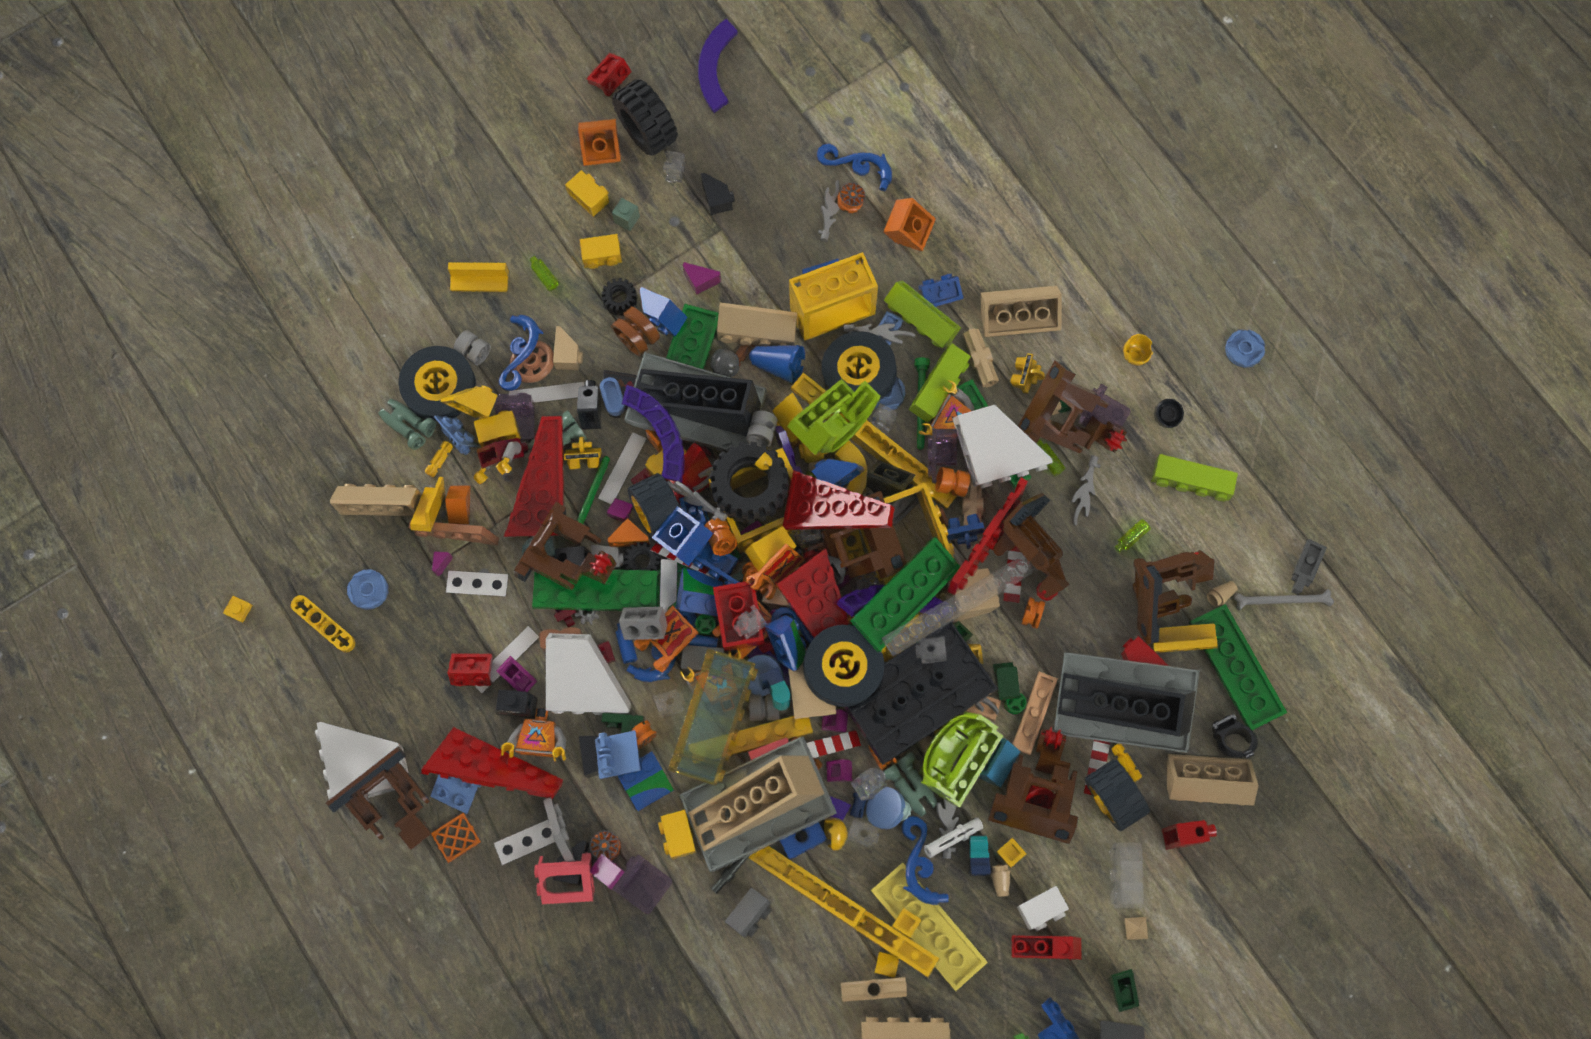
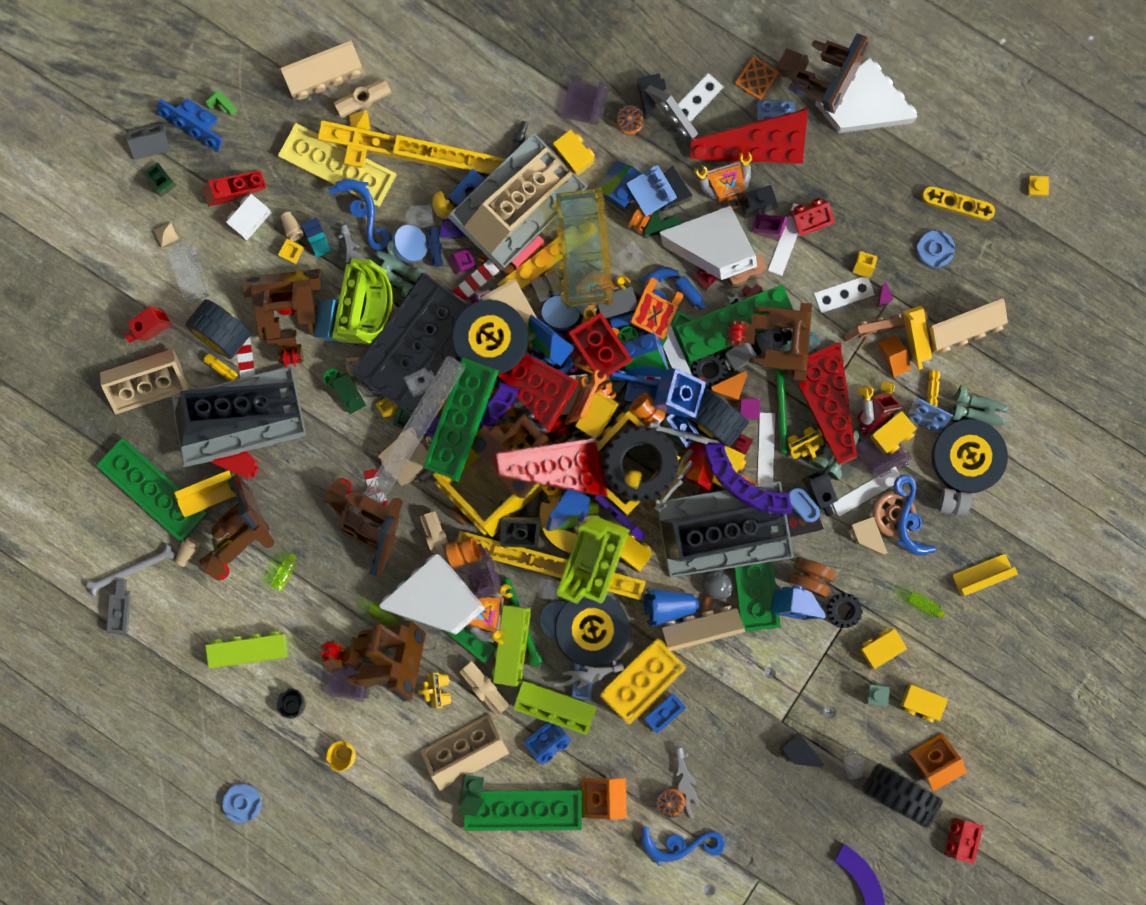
camera: 155 degrees right, 10 degrees up
(442, 602) = (864, 264): none -> yellow slope
(473, 401) = (927, 444): yellow slope -> none
(582, 867) = (636, 88): coral panel -> none
(607, 871) = (616, 95): slope -> none
(643, 623) = (680, 309): light grey brick -> none
(700, 277) = (777, 659): magenta slope -> none
(748, 913) = (488, 112): dark grey slope -> none
(749, 623) = (586, 338): clear brick -> none
(762, 428) = (653, 525): light grey wheel -> none
(777, 687) = (536, 296): leg -> none
(869, 783) = (430, 255): clear brick -> none
(961, 832) = (339, 248): white pin -> none
(966, 533) = (443, 506): blue hips -> none
(987, 243) = (527, 811): none -> green plate
(988, 541) = (408, 507): red wing -> none
(1030, 270) = (470, 795): none -> dark green slope
(1032, 608) = (347, 463): orange wheel -> none
(1034, 712) = (314, 378): light nougat tile -> none
(1083, 492) = (343, 597): light grey piece -> none
(1230, 726) = (141, 436): black piece -> none

